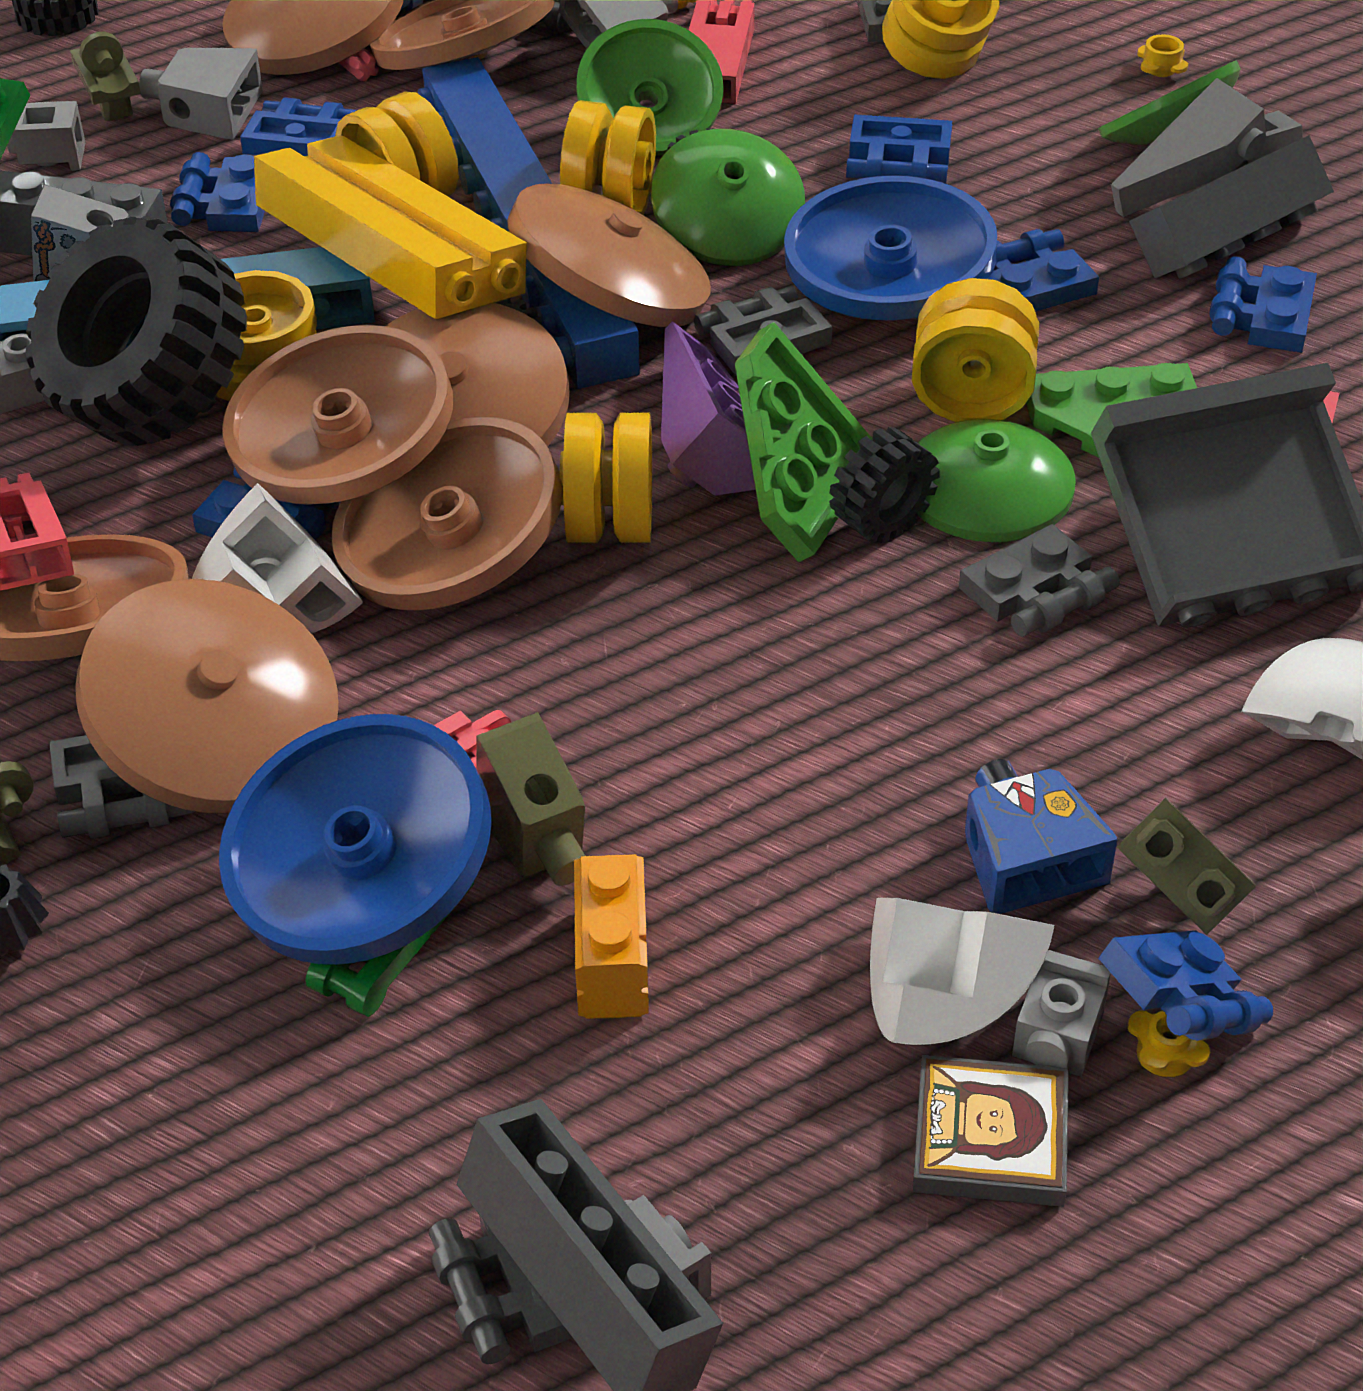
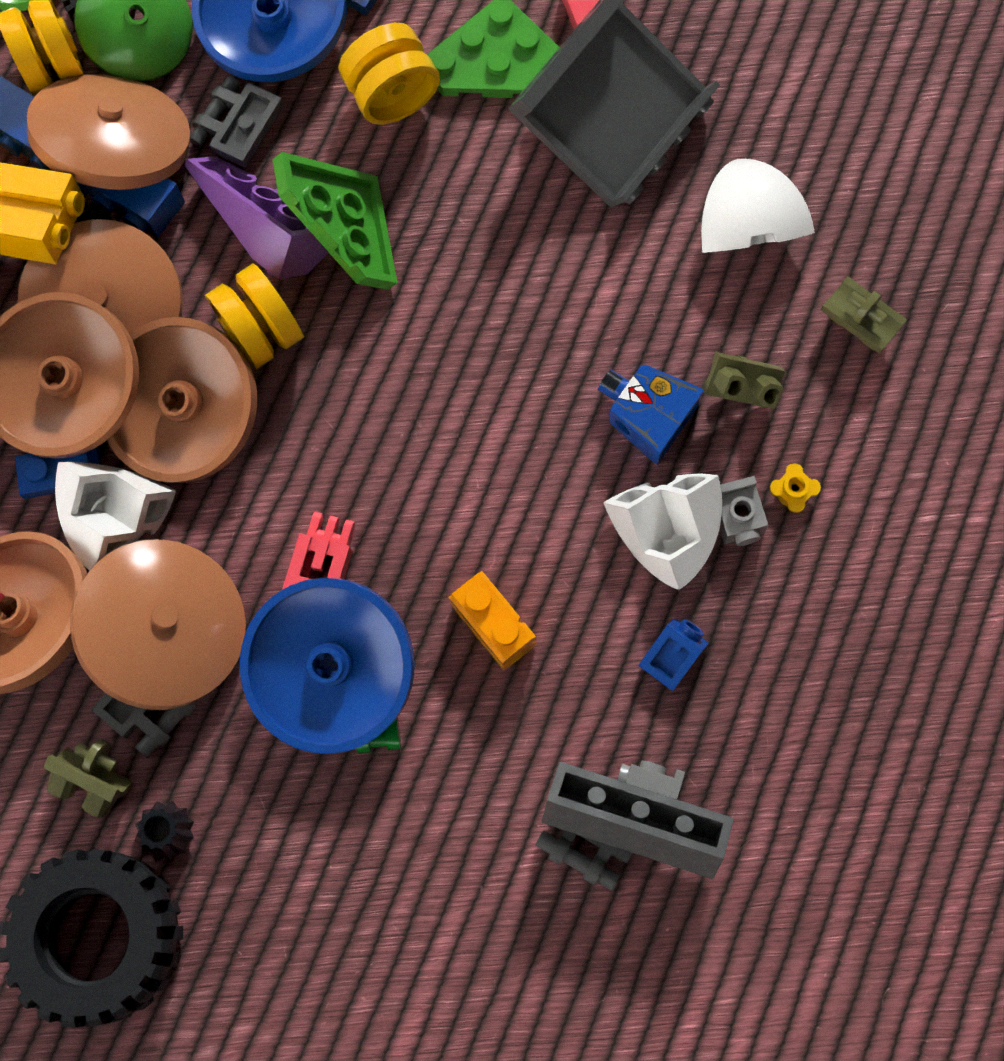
camera: 30 degrees left, 30 degrees up
(532, 798) = (381, 558): olive torso -> none
(826, 1121) = (674, 652): none -> blue bracket
(884, 485) = (410, 214): black tyre -> none
(992, 1131) = (747, 597): tile -> none
(996, 481) = (452, 176): bright green dish -> none
(1026, 576) = (519, 218): dark grey plate -> none
(1188, 981) = (777, 453): blue plate -> none

